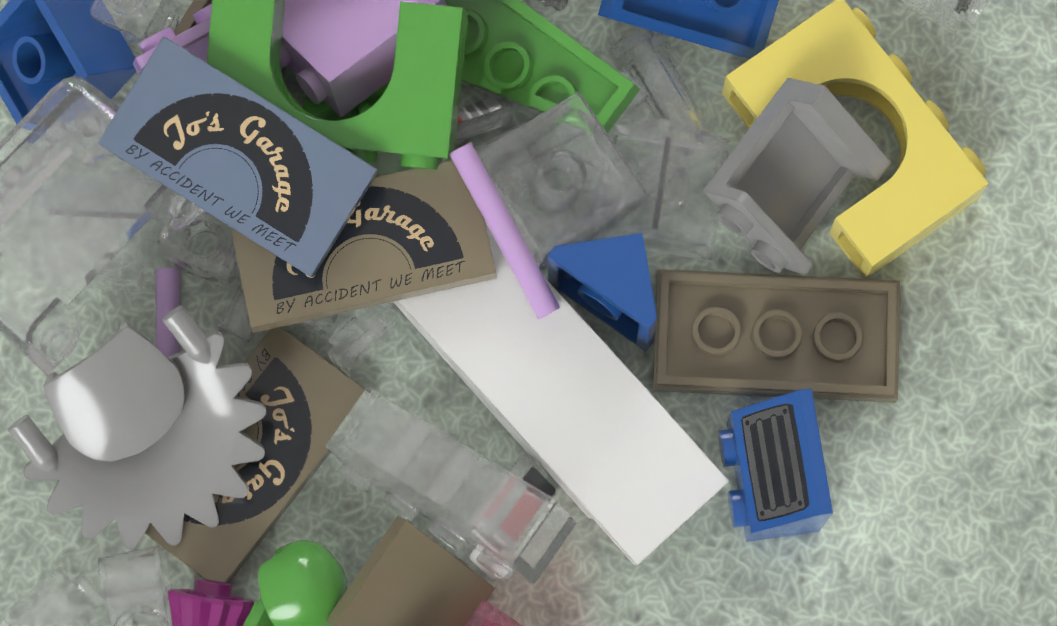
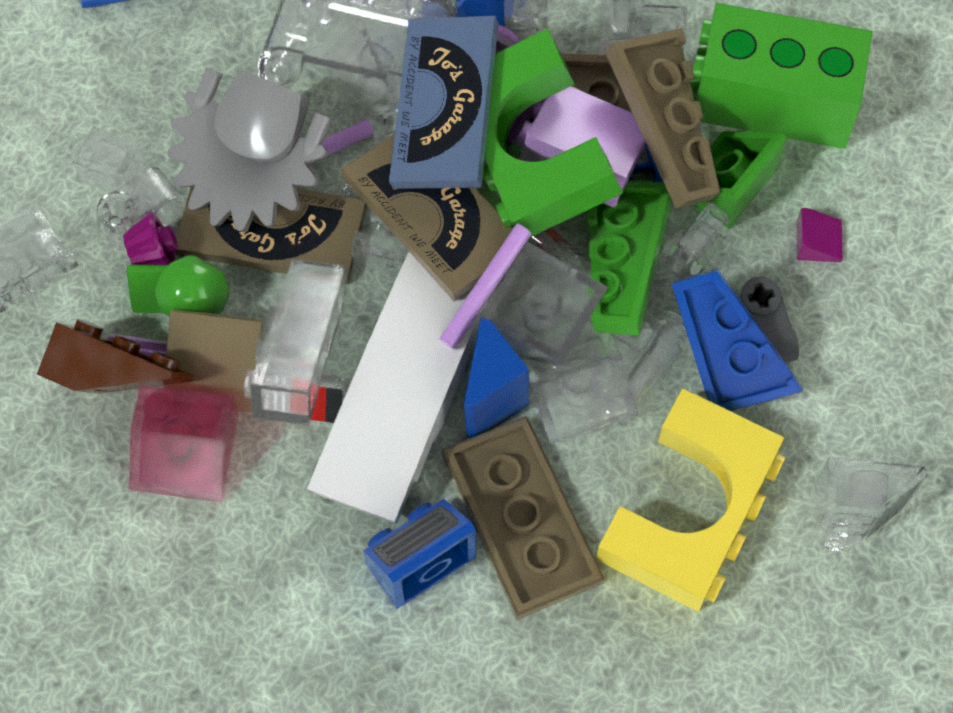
camera: 65 degrees right, 10 degrees down
(792, 172) = (634, 463): light grey panel -> none

